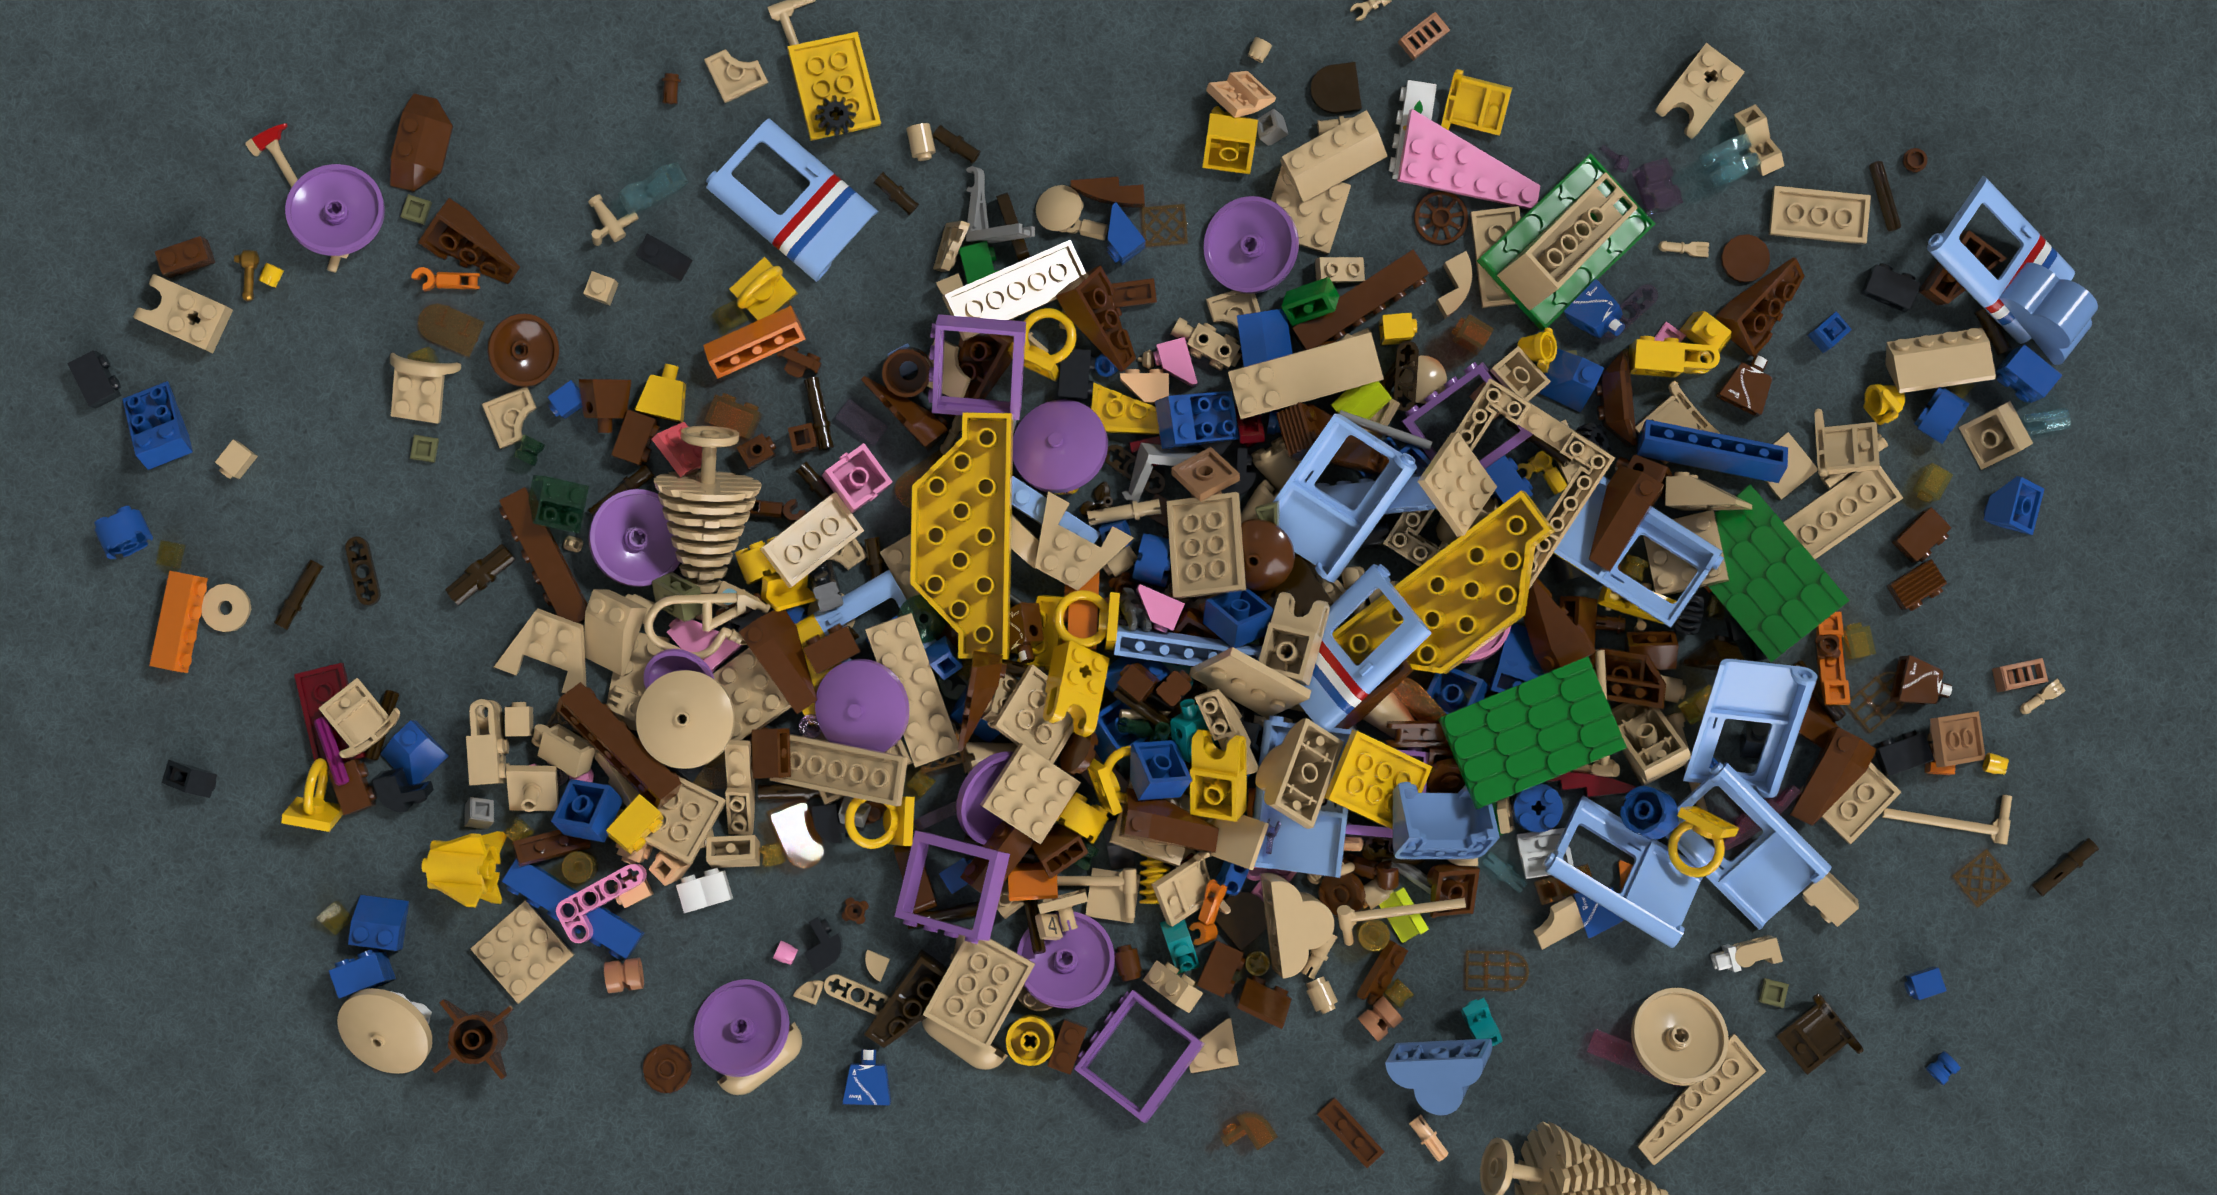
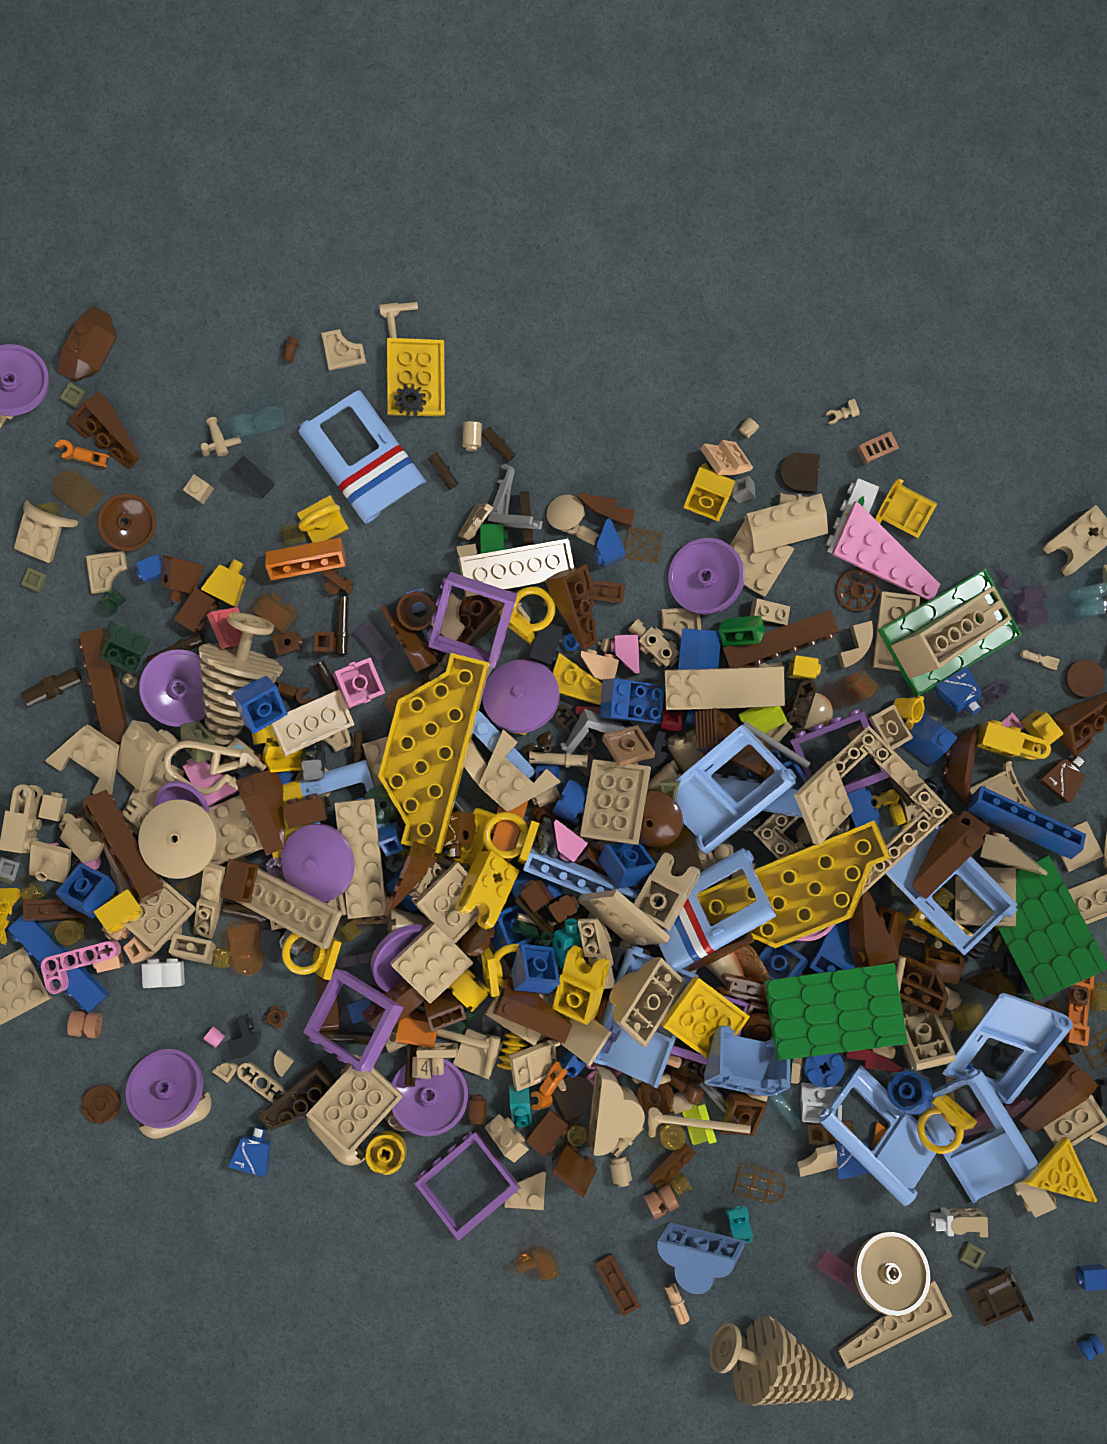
camera: 10 degrees right, 0 degrees up
(746, 530) = (259, 704): none -> blue brick
(1067, 1046) = (414, 1163): reddish brown brick -> none
(1856, 865) = (1062, 1173): none -> yellow tile

